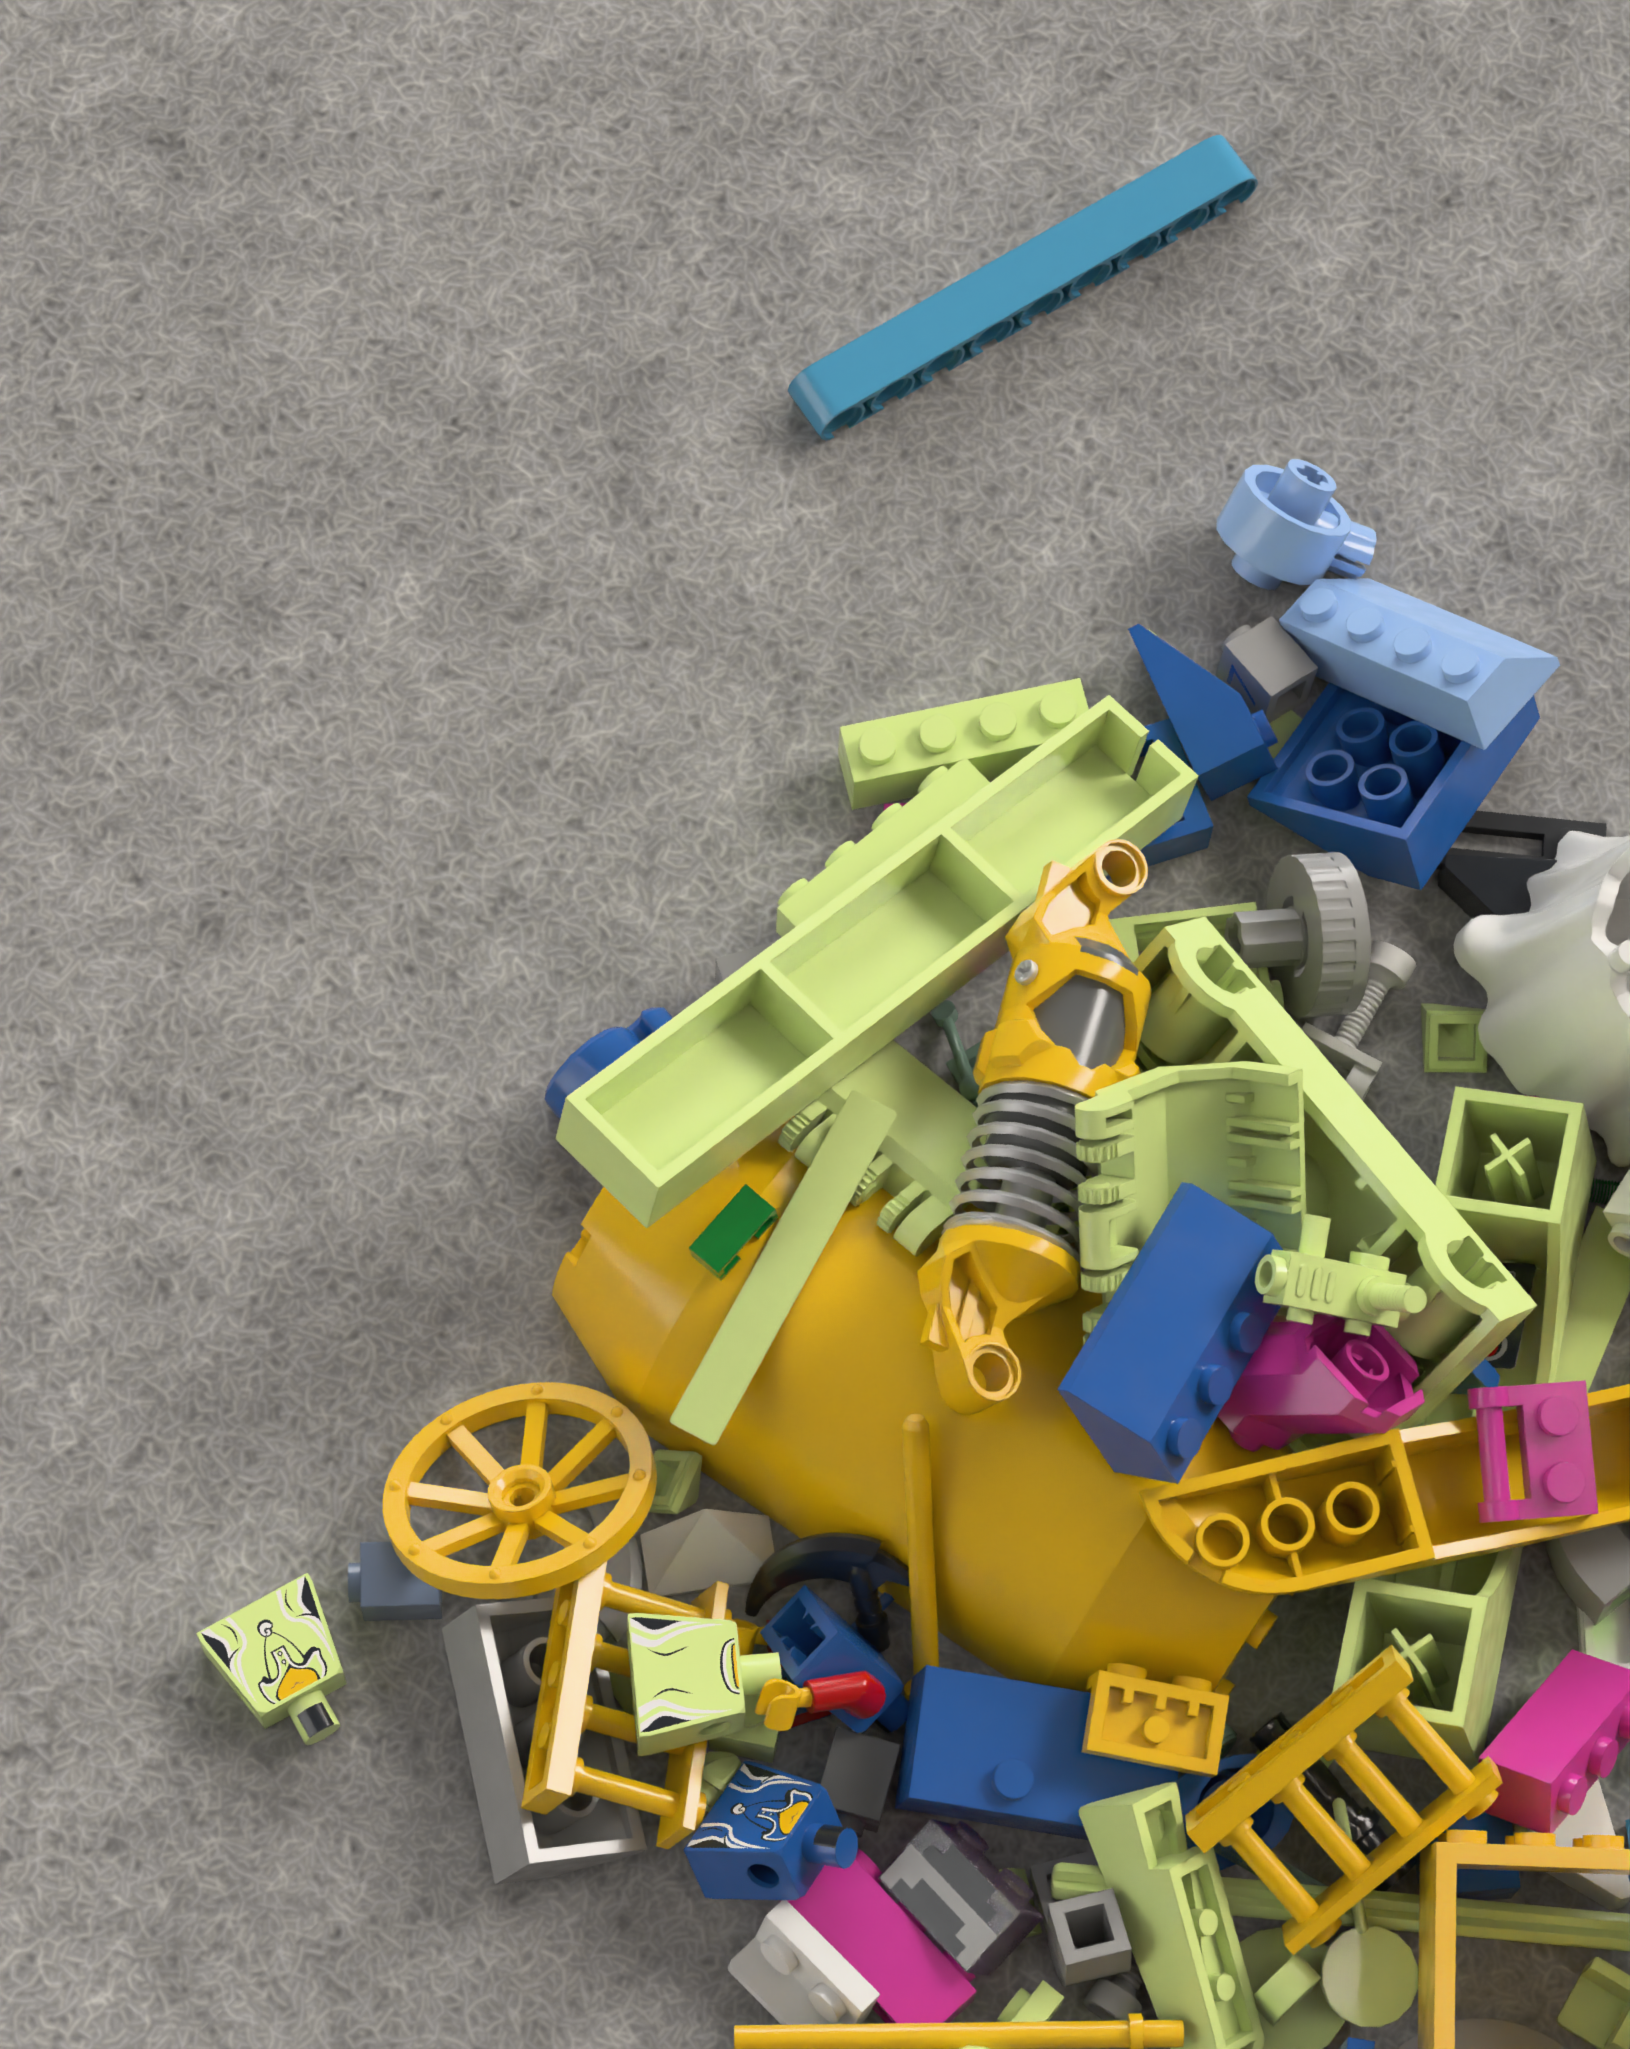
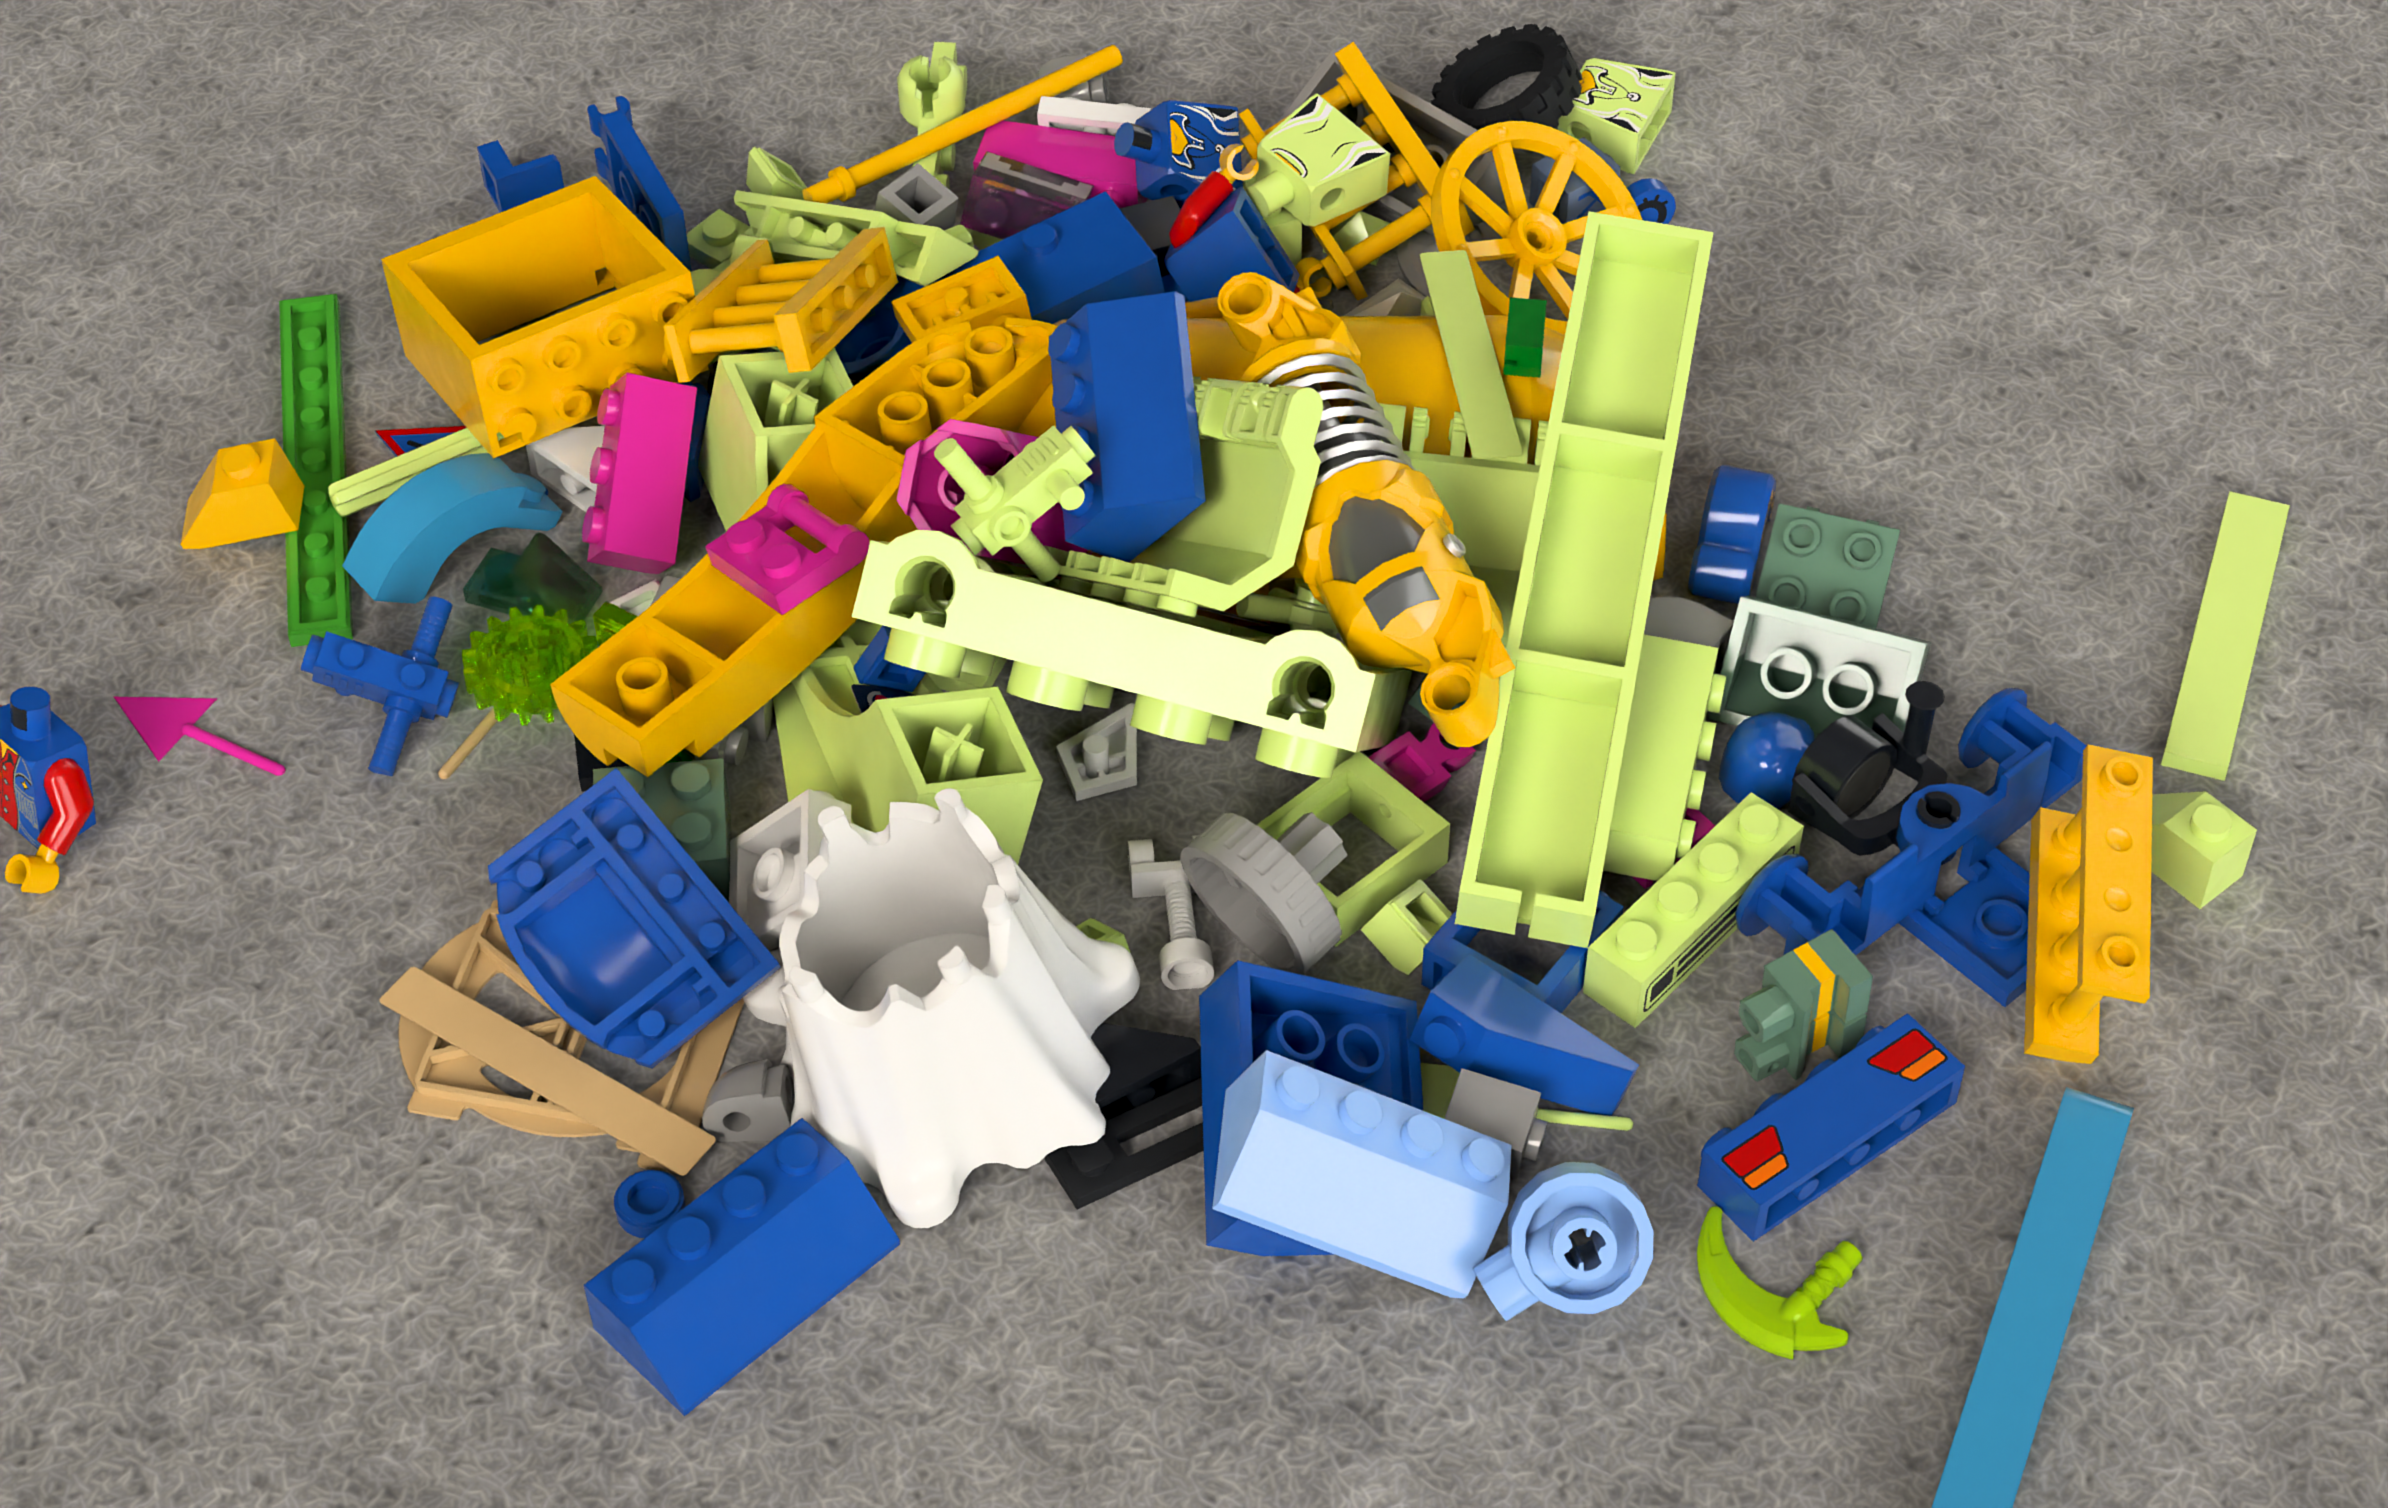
camera: 150 degrees right, 20 degrees down
(295, 728) = (2225, 636): none -> yellowish green tile
(355, 1509) = (1653, 200): none -> blue tile
(436, 1758) = (1507, 56): none -> black tyre
(536, 565) = (2198, 844): none -> yellowish green slope
(581, 978) = (1828, 564): none -> sand green plate
(669, 887) = (1815, 667): none -> slope
(725, 524) = (2089, 906): none -> yellow fence
(725, 607) = (1843, 771): none -> blue piece
(779, 843) = (1764, 757): none -> blue hair
(971, 595) = (1805, 1003): none -> sand green hips
(1015, 516) = (1829, 1125): none -> blue brick
(1174, 434) = (1765, 1318): none -> lime piece
(1184, 881) = (1407, 926): none -> yellowish green slope

